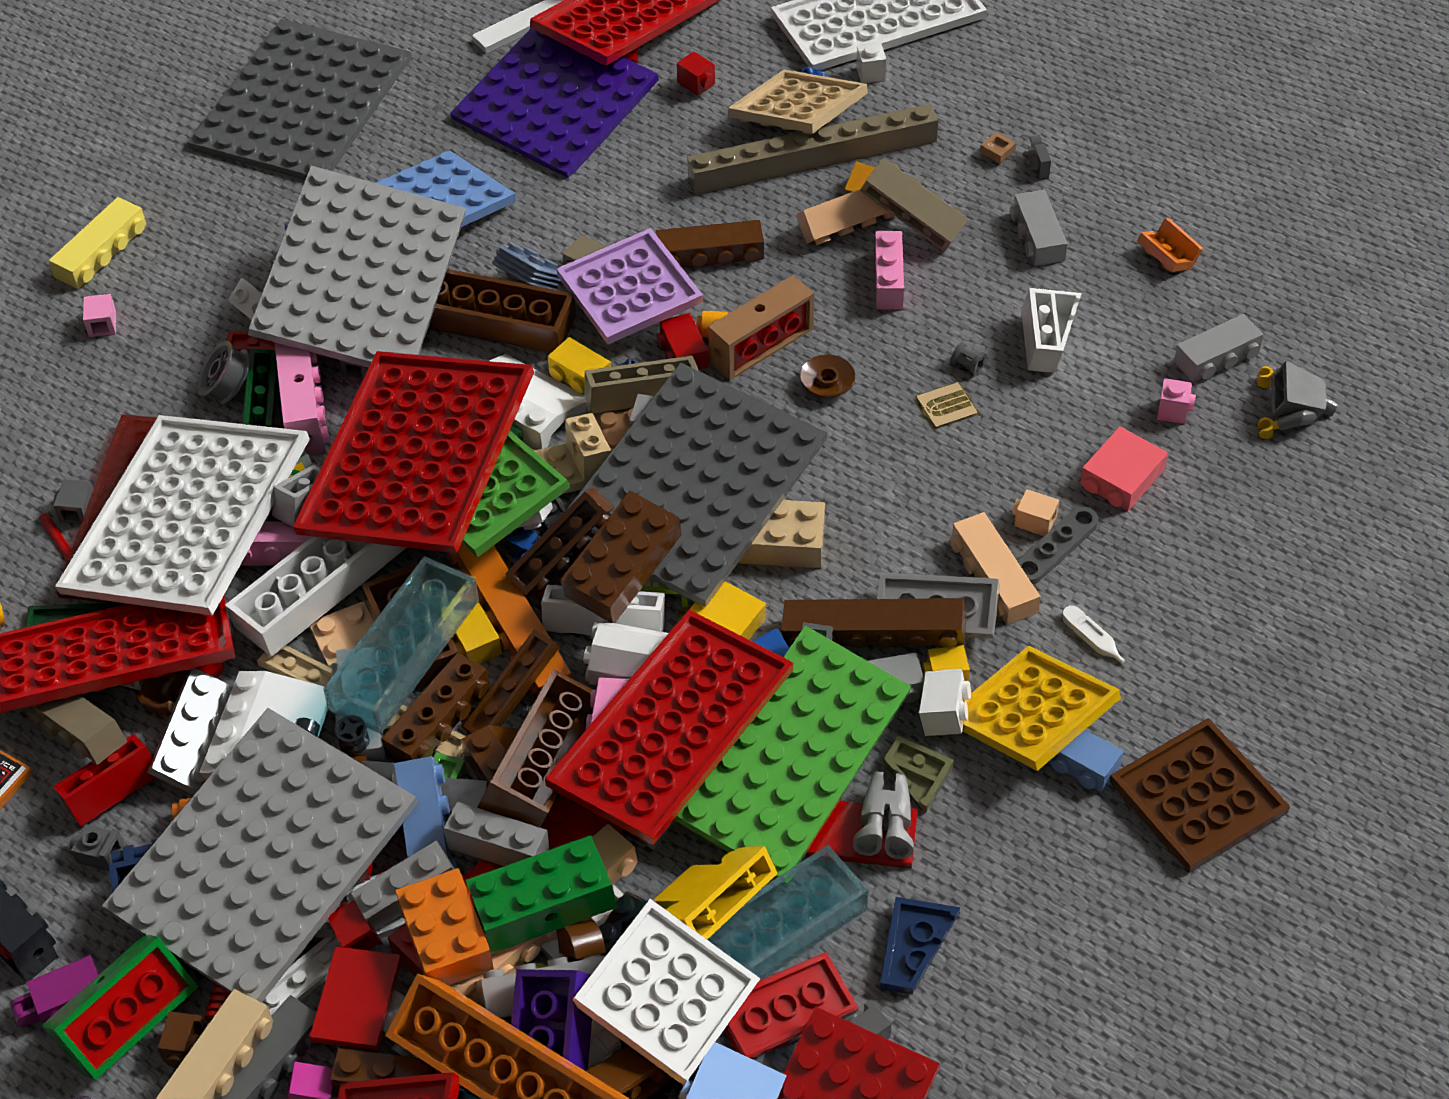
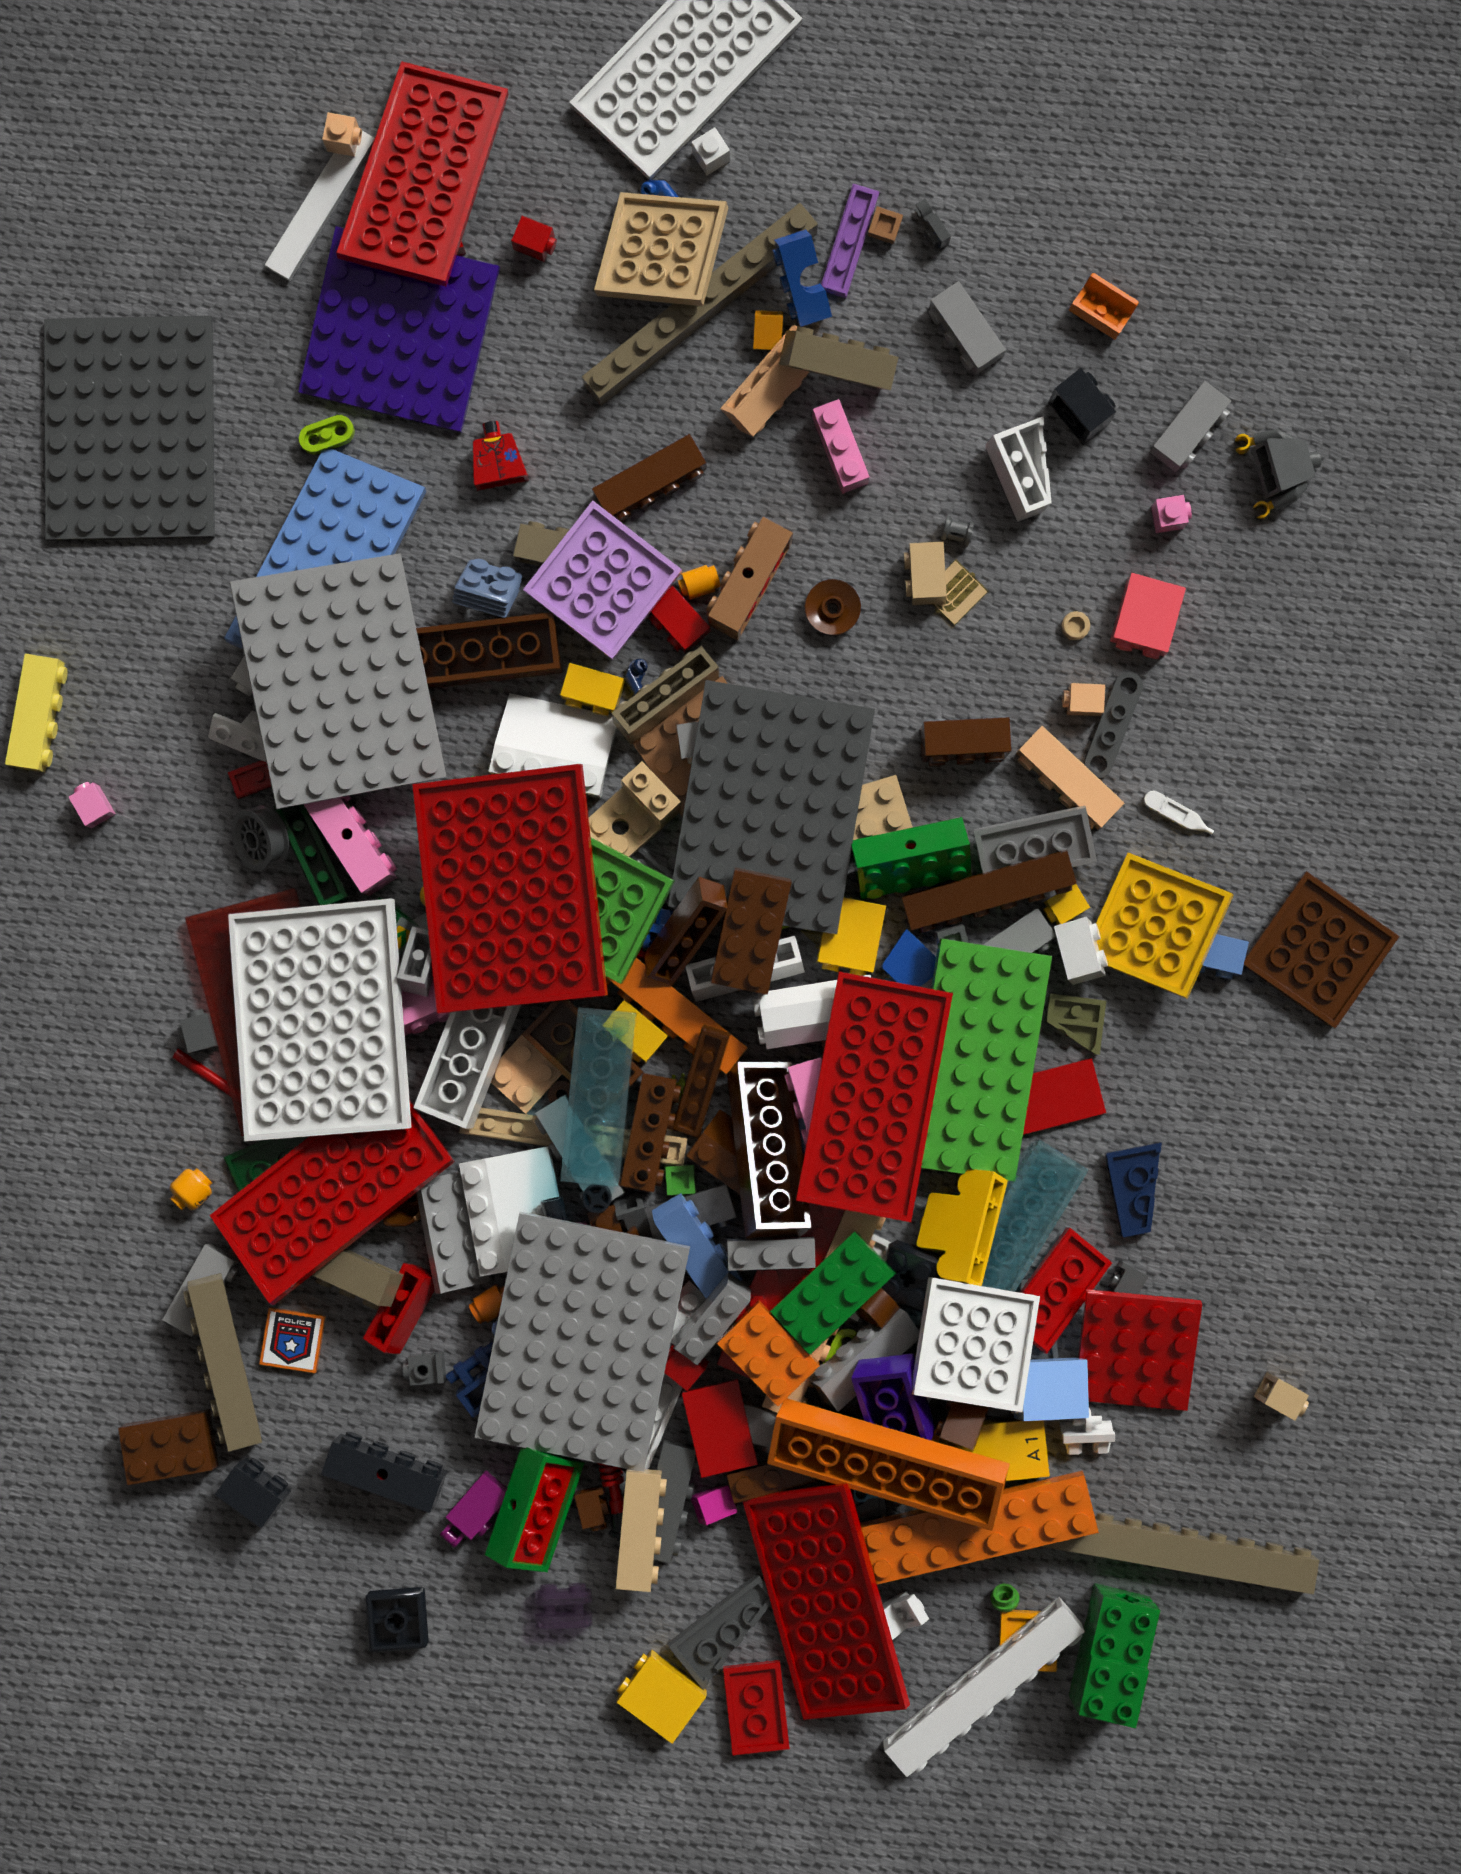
camera: 20 degrees left, 35 degrees up
(461, 143) = (327, 434): none -> lime plate
(585, 197) = (496, 459): none -> red torso
(806, 568) = (911, 858): none -> green brick
(886, 812) = (1070, 1077): light grey piece -> none
(904, 499) = (965, 741): none -> reddish brown brick
(908, 125) = (794, 255): none -> blue arch
(925, 377) = (926, 573): none -> tan brick
(960, 152) = (849, 240): none -> medium lavender tile
(1051, 461) = (1075, 625): none -> tan tile
(1121, 298) = (1082, 405): none -> black brick

